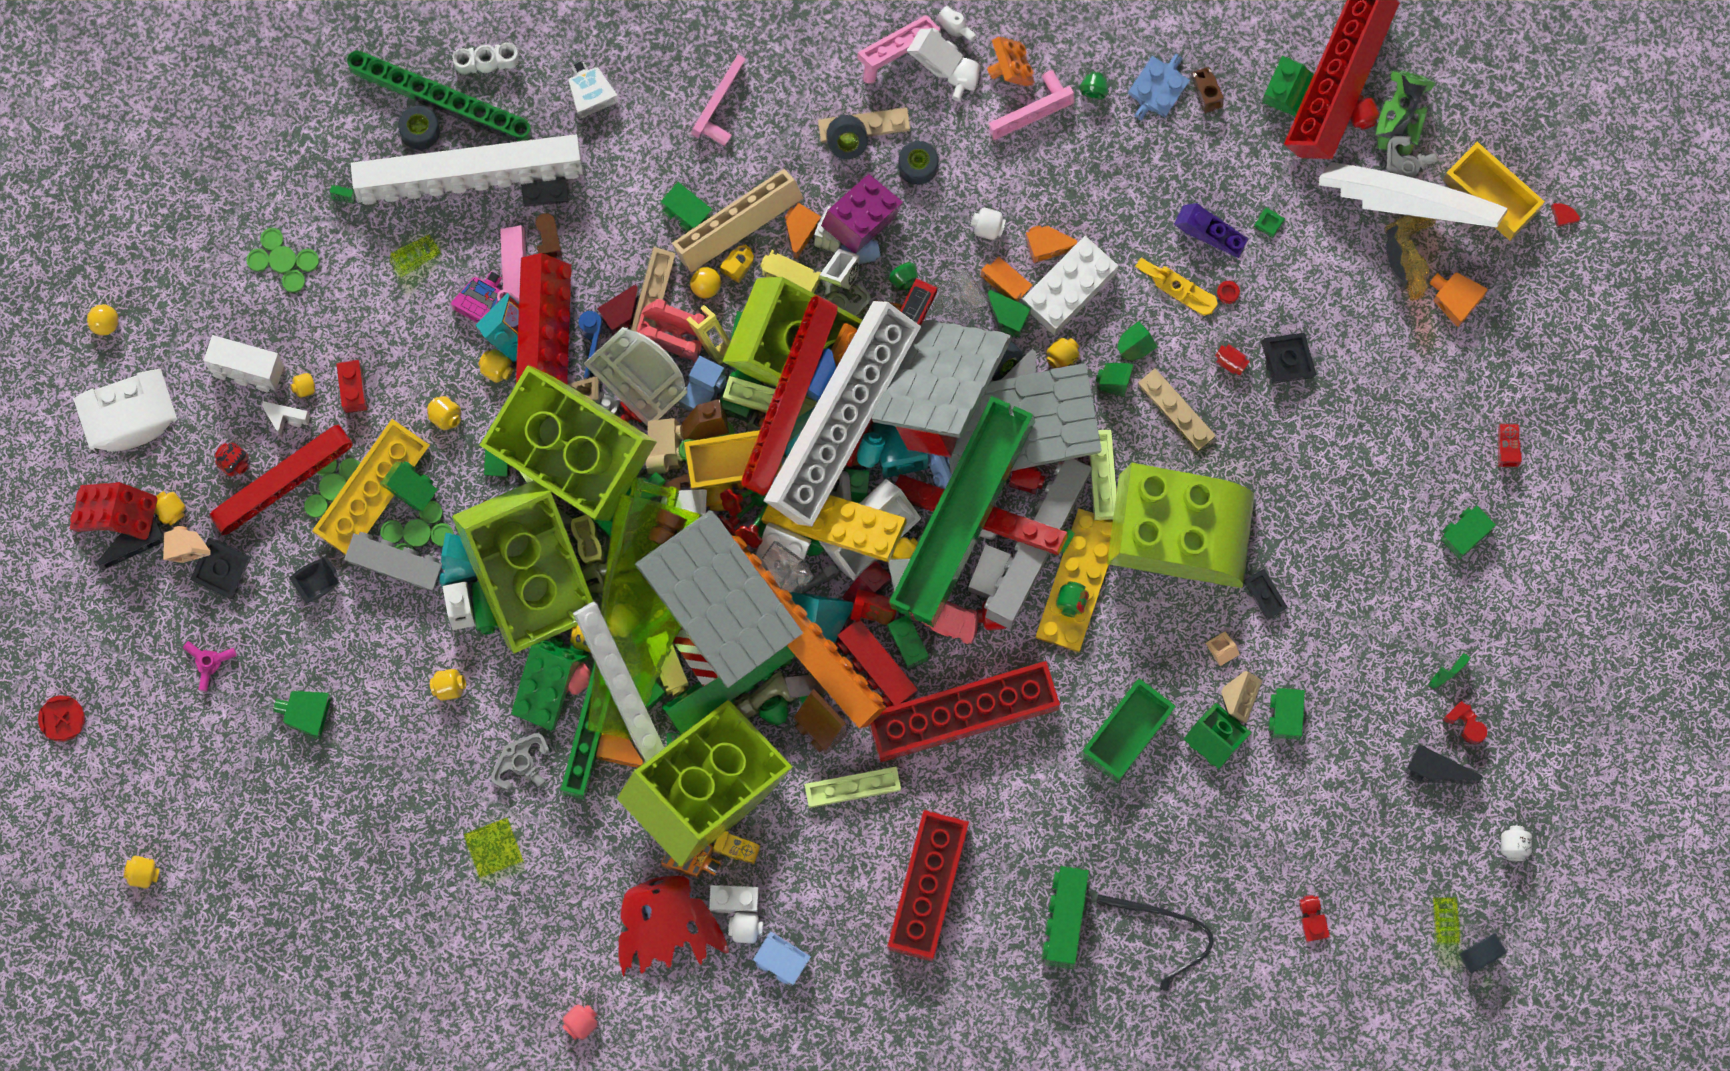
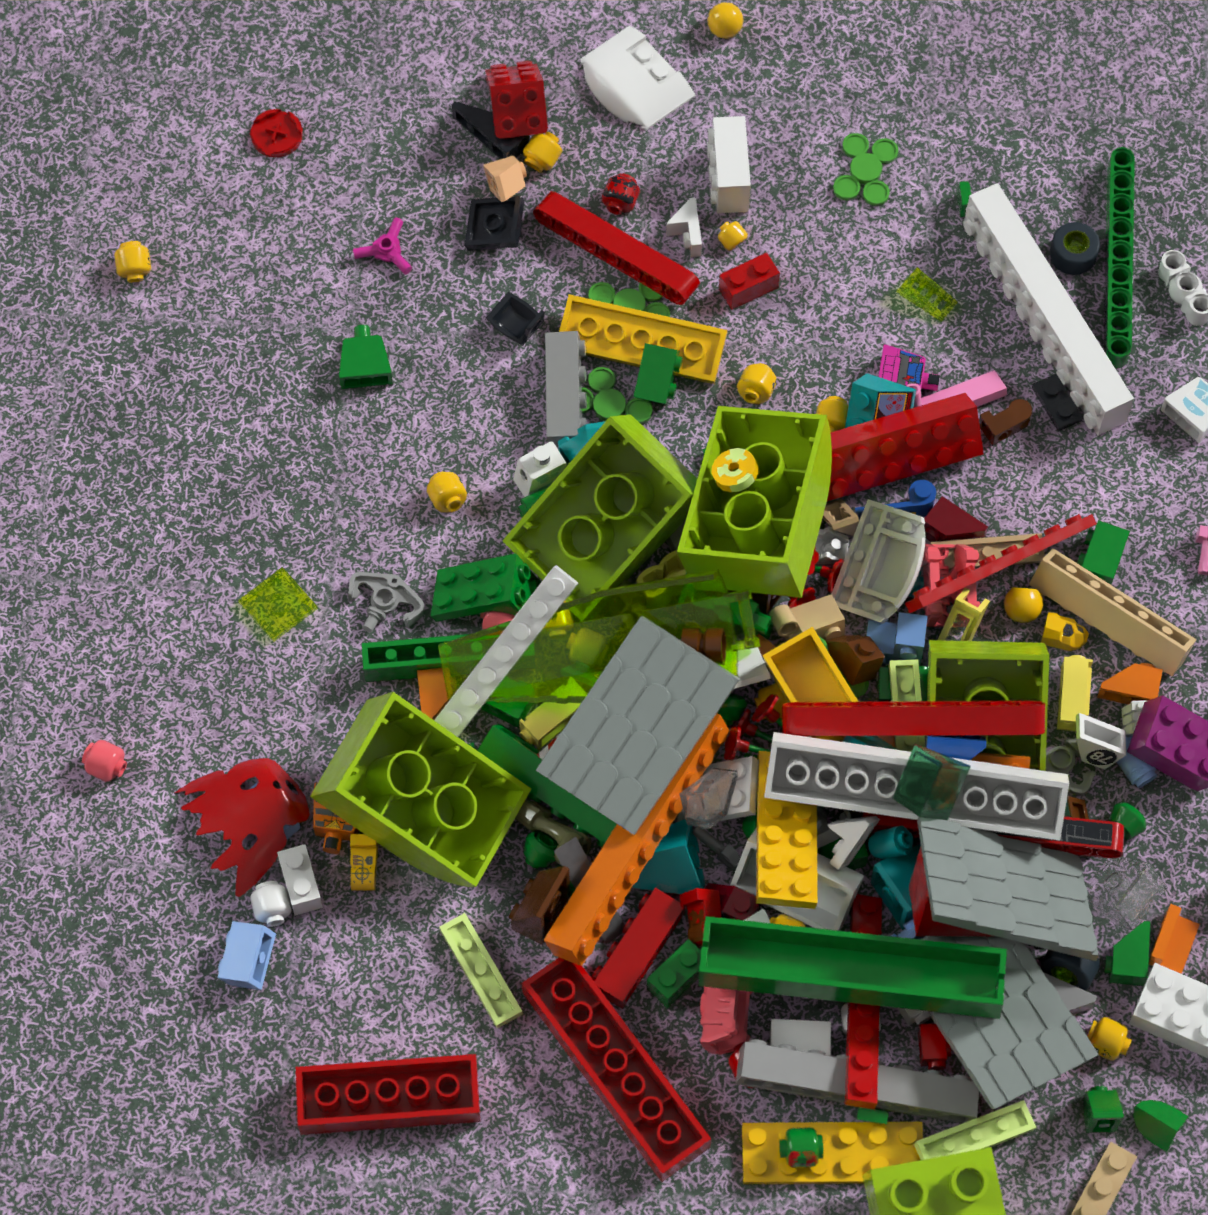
camera: 70 degrees right, 10 degrees down
(552, 456) = (741, 478): none -> yellow piece
(675, 290) = (992, 565): none -> red plate
(851, 401) = (930, 783): none -> clear green slope
(856, 474) = (853, 834): none -> white slope

